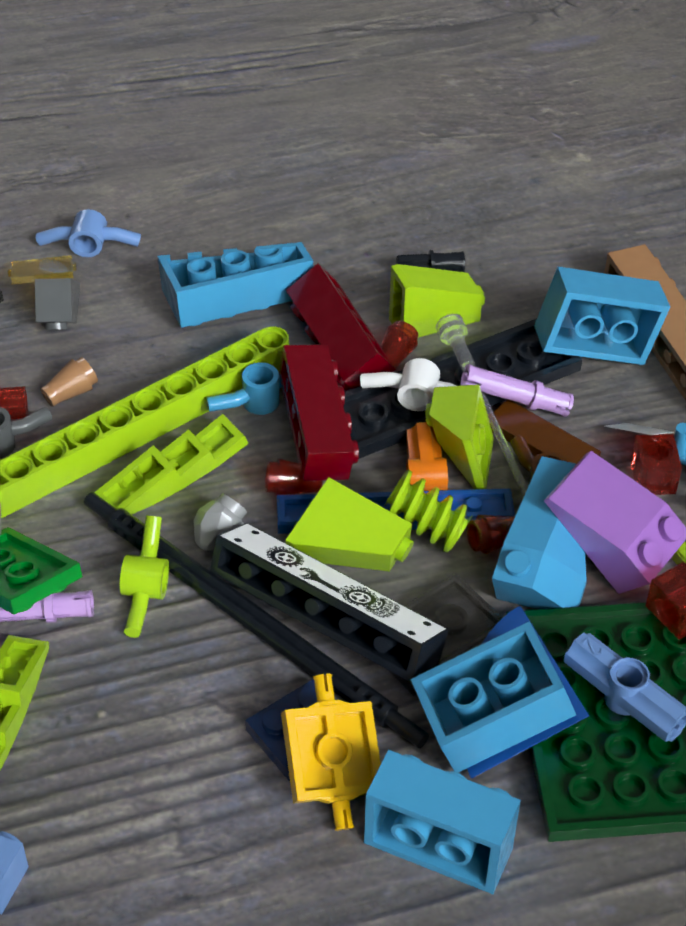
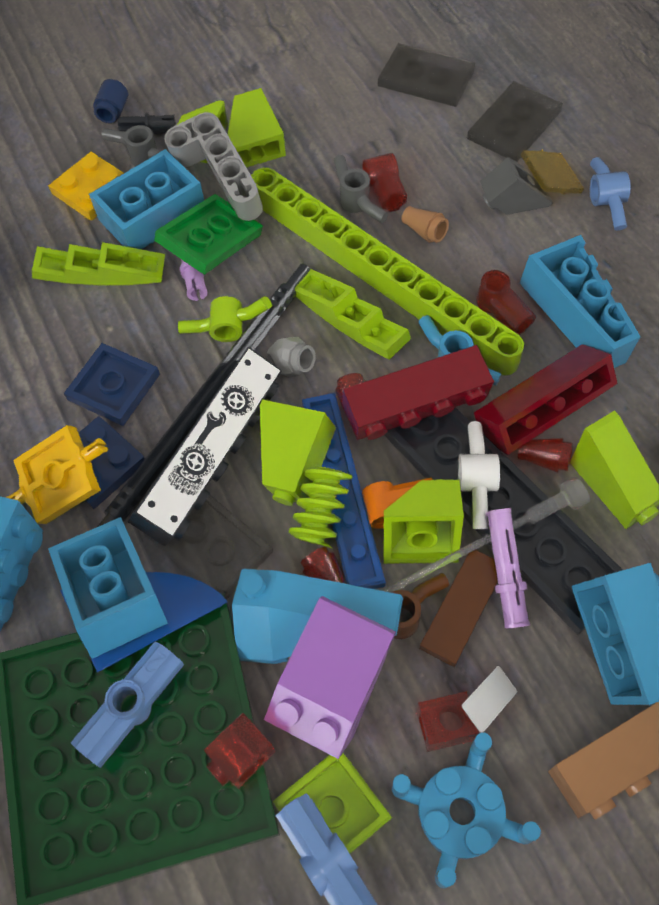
camera: 85 degrees right, 15 degrees up
(196, 341) = (500, 300): none -> clear red piece
(201, 703) = (112, 384): none -> dark blue plate

